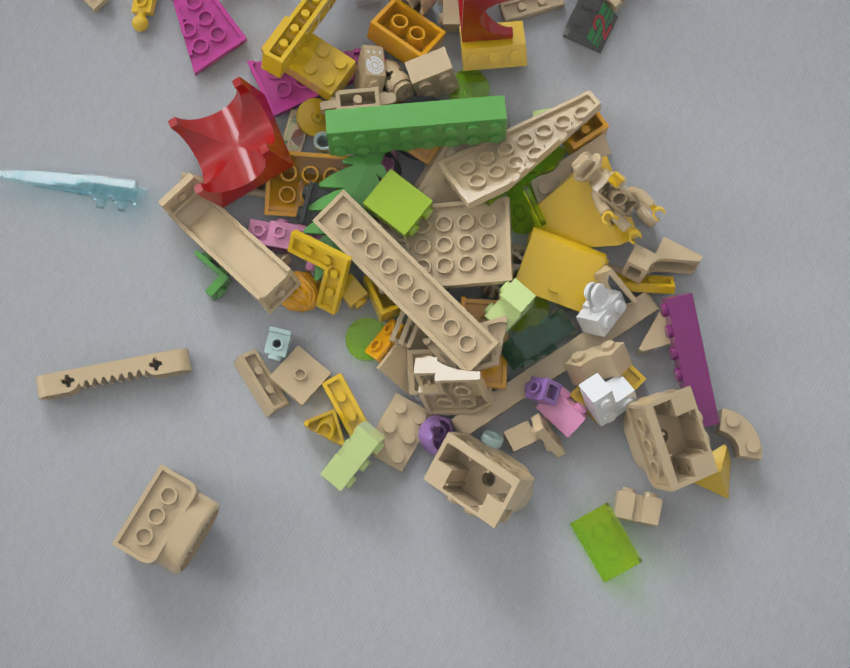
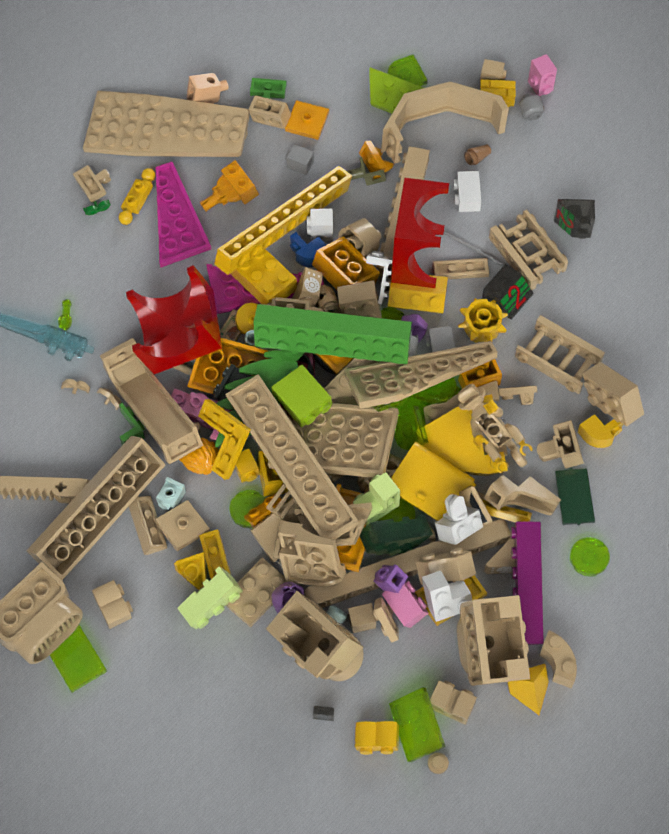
camera: 15 degrees right, 15 degrees down
(101, 20) = (94, 209): none -> green piece
(105, 162) = (65, 319): none -> clear neon green piece
(131, 237) = (70, 383): none -> tan piece
(187, 246) = (110, 397): none -> tan piece
(201, 379) = (96, 507): none -> tan brick
(226, 553) = (77, 660): none -> clear neon green tile
(247, 483) = (112, 604): none -> tan brick
(356, 24) = (305, 252): none -> blue brick
(449, 20) = (378, 258): none -> white plate
(498, 85) = (418, 326): none -> medium lavender plate
(504, 551) = (323, 713): none -> clear smoke tile
(531, 99) = (440, 339): none -> light grey brick
(566, 565) = (377, 736): none -> yellow brick
(575, 53) = (483, 320): none -> yellow brick
(635, 138) = (526, 393): none -> tan hinge
(636, 577) = (438, 763): none -> tan plate
(679, 72) = (565, 338): none -> tan fence
(691, 192) = (563, 445): none -> tan brick
(715, 246) = (575, 496): none -> clear green piece
(723, 169) = (598, 434): none -> yellow brick
(735, 123) = (613, 394): none -> tan brick
(744, 311) = (589, 556): none -> clear neon green tile

